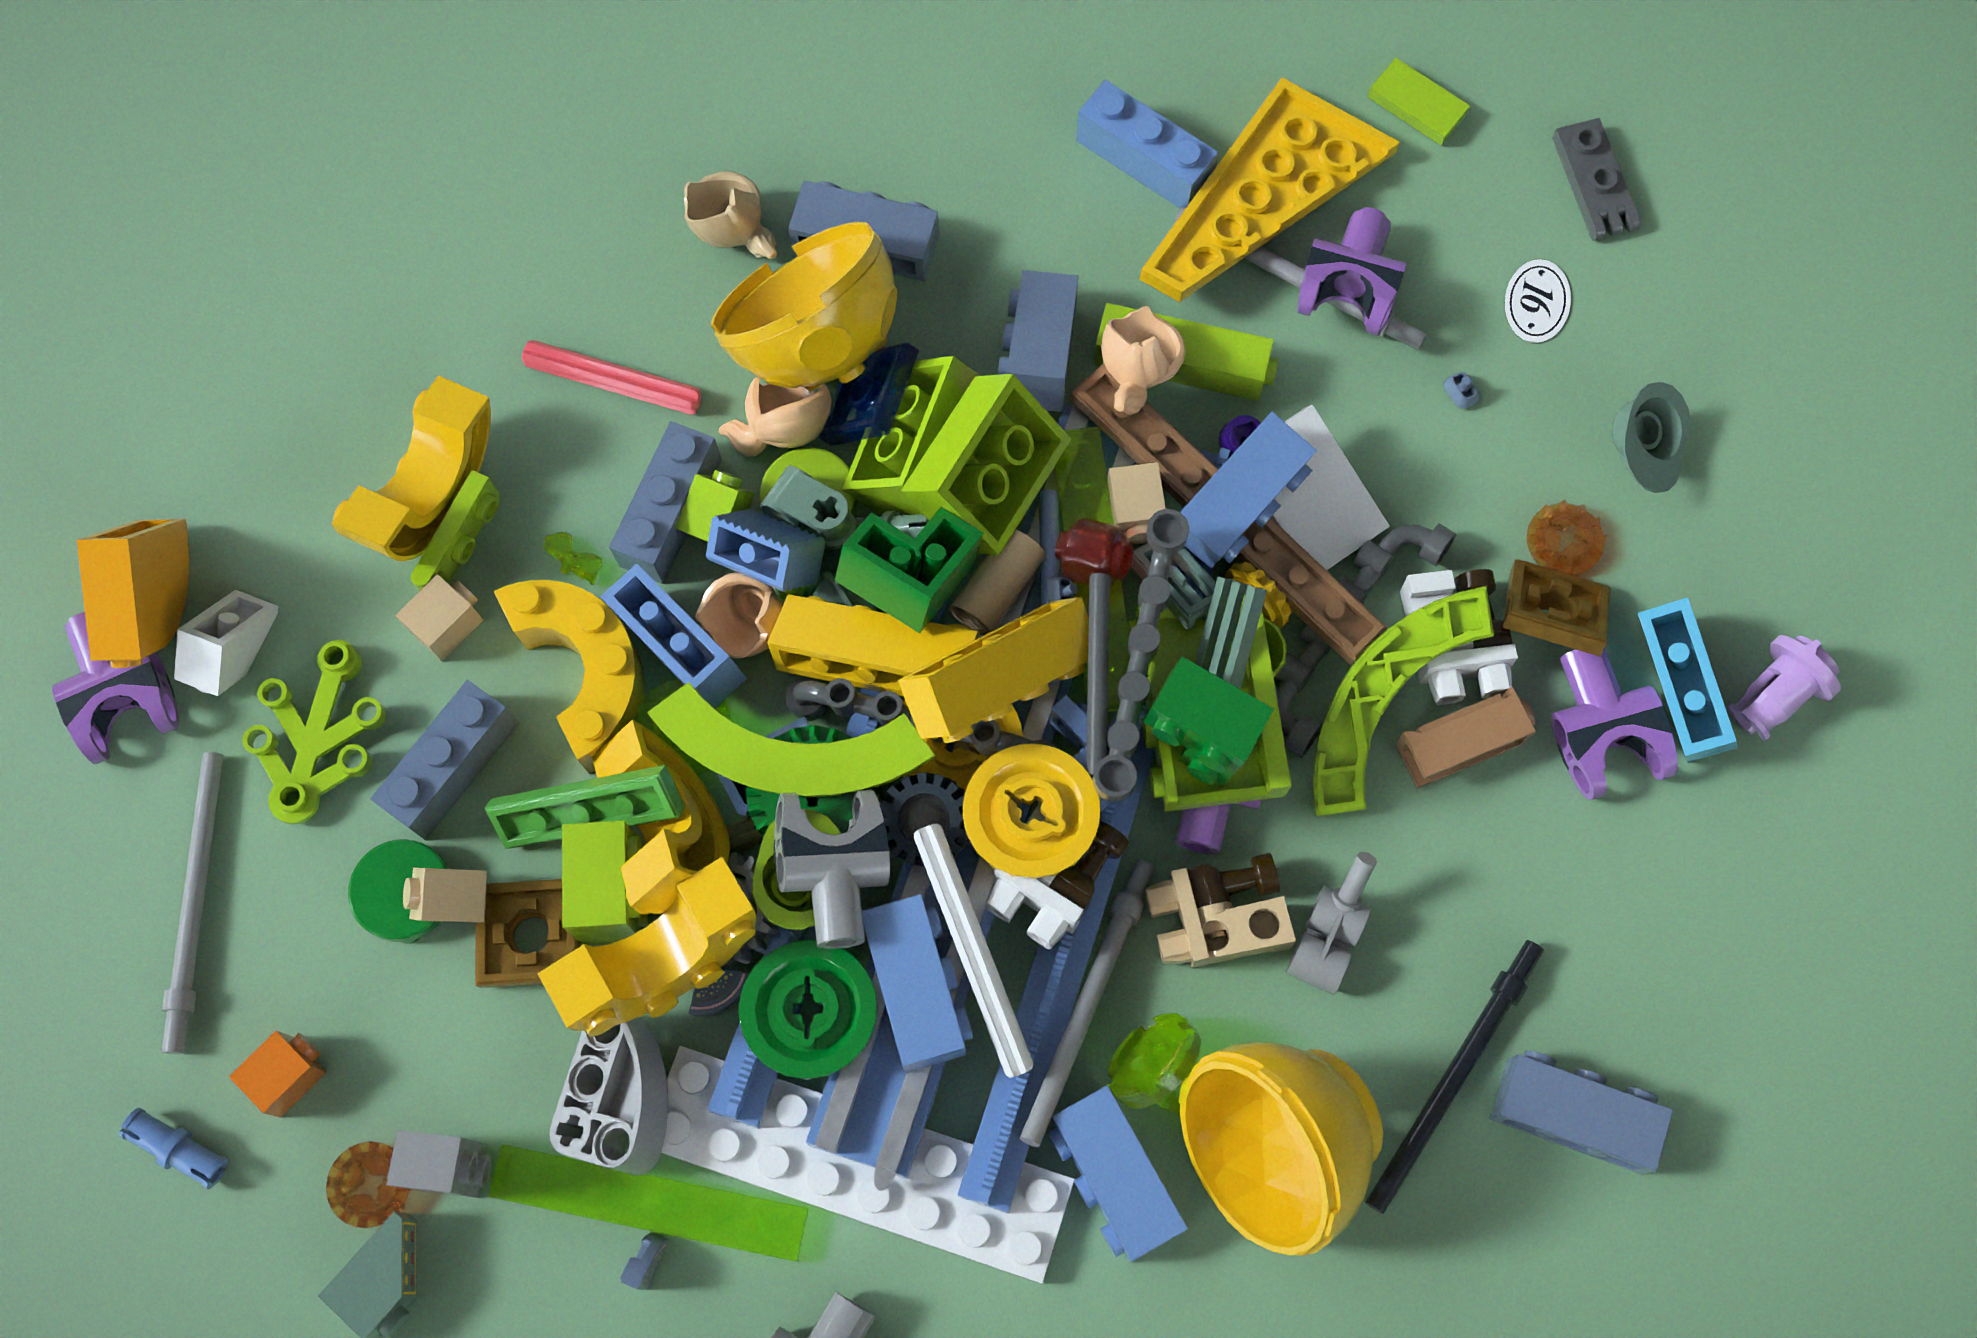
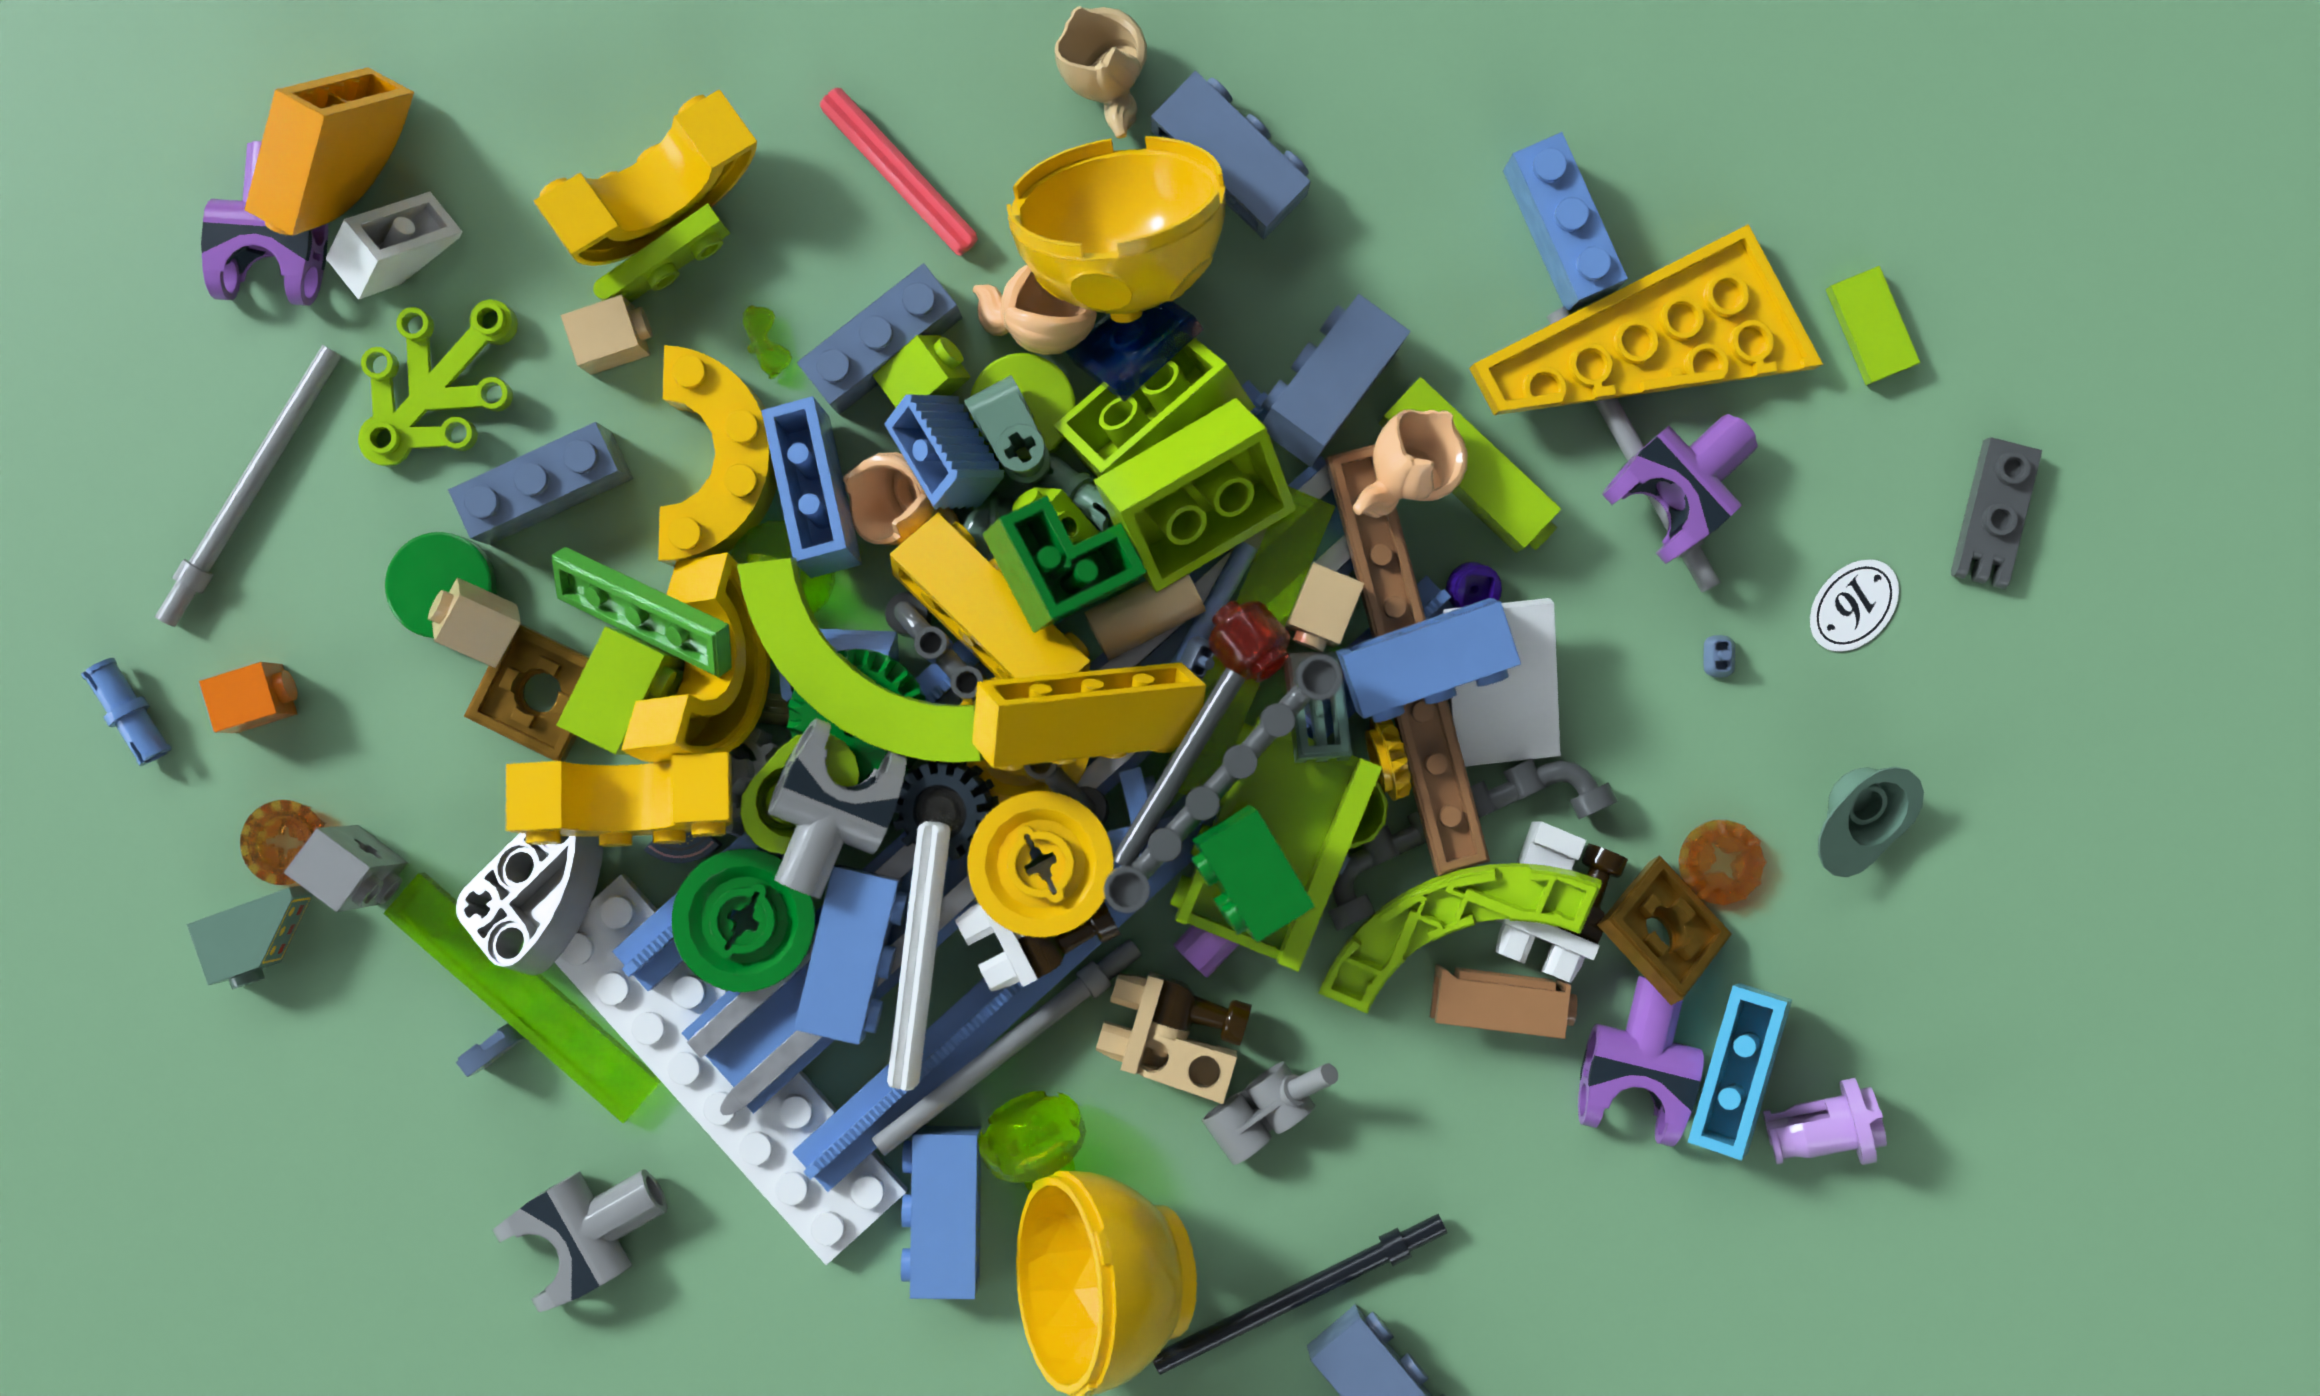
camera: 25 degrees right, 15 degrees up
(1222, 630) = (1325, 786): sand green tile -> none

